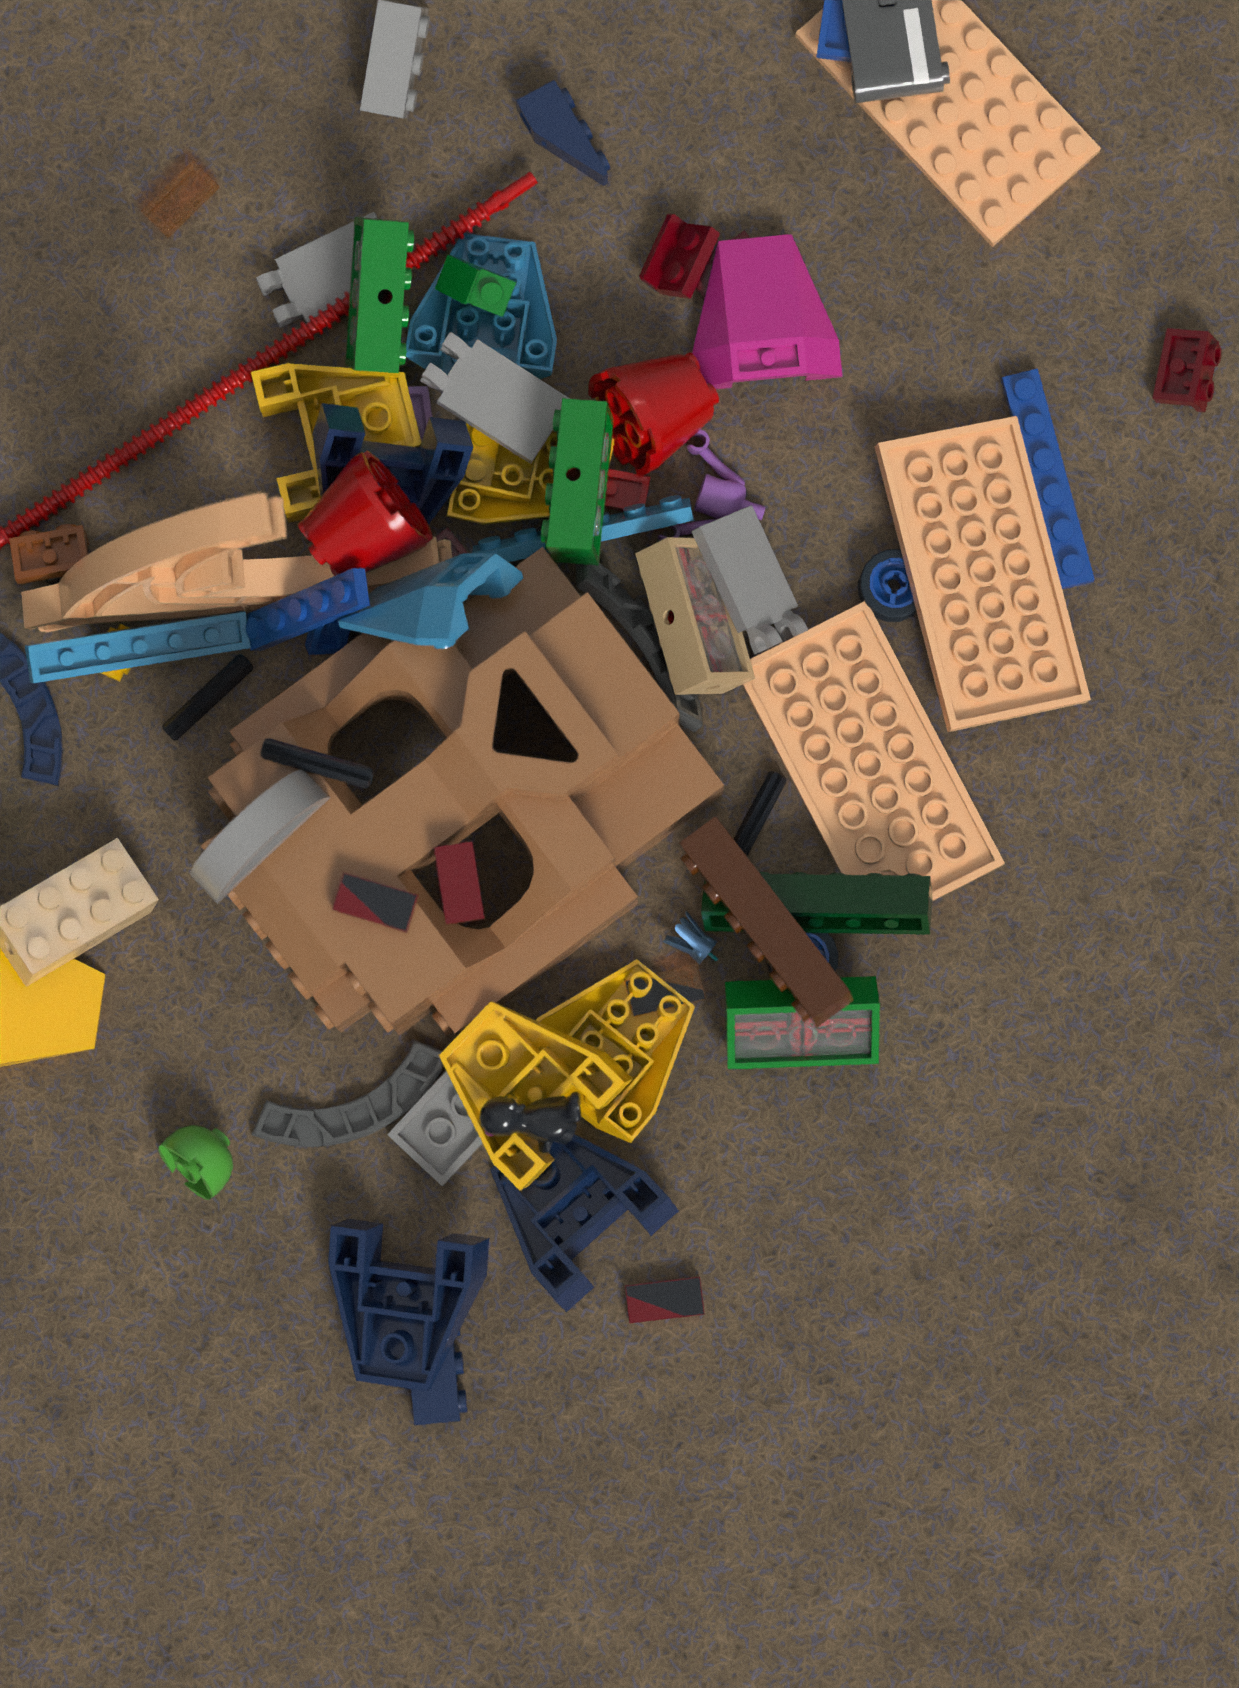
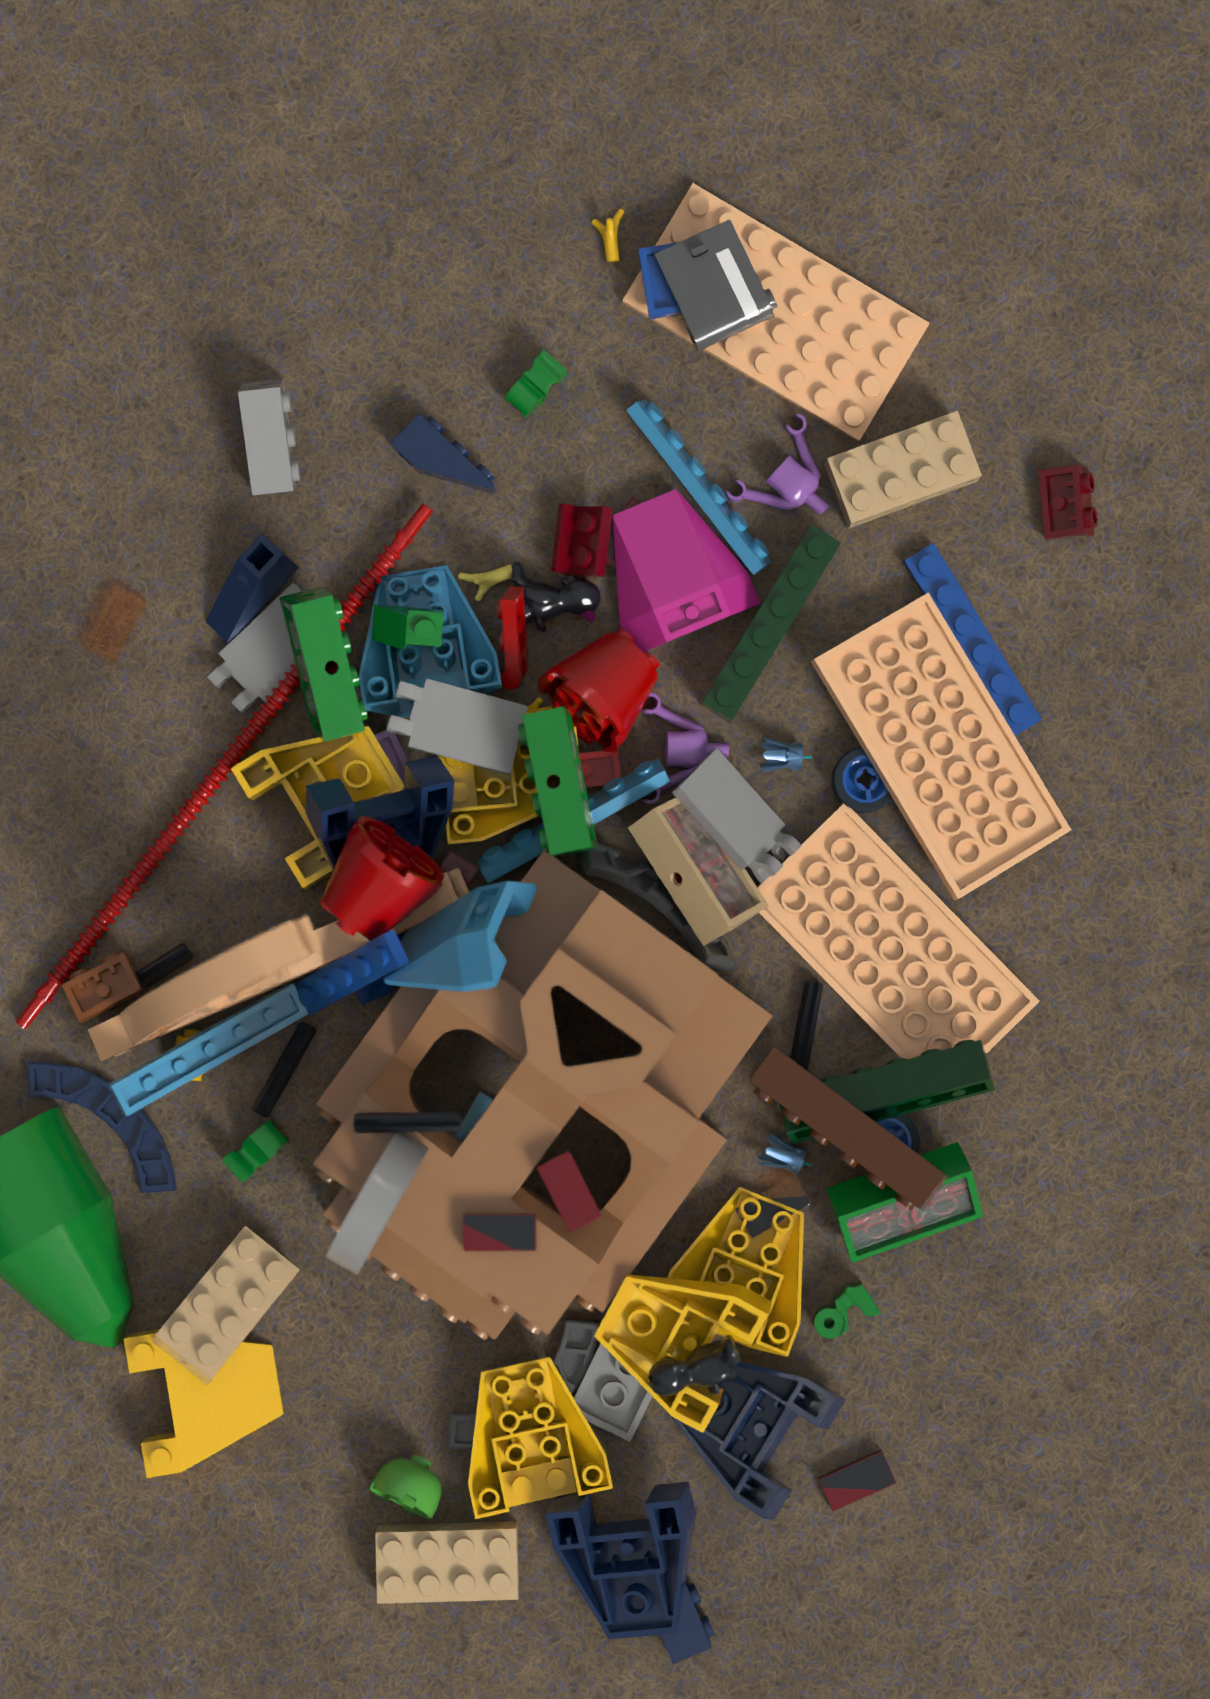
camera: 20 degrees left, 5 degrees up
(154, 768) = (255, 1151): none -> green leg
(214, 1249) = (447, 1562): none -> tan brick
(329, 200) = (250, 585): none -> dark blue slope
(340, 1149) = (531, 1440): none -> yellow wedge
(572, 269) = (487, 579): none -> light yellow bar
(579, 329) = (513, 637): none -> red plate
(623, 308) = (547, 602): none -> black animal
(677, 91) = (534, 384): none -> green leg
(691, 1126) = (832, 1320): none -> green leg
(822, 252) = (708, 496): none -> dark azure plate
(824, 535) = (782, 755): none -> flat silver piece
(845, 398) = (770, 624): none -> dark green brick
(910, 261) = (790, 479): none -> medium lavender piece
(1028, 284) = (902, 469): none -> tan brick

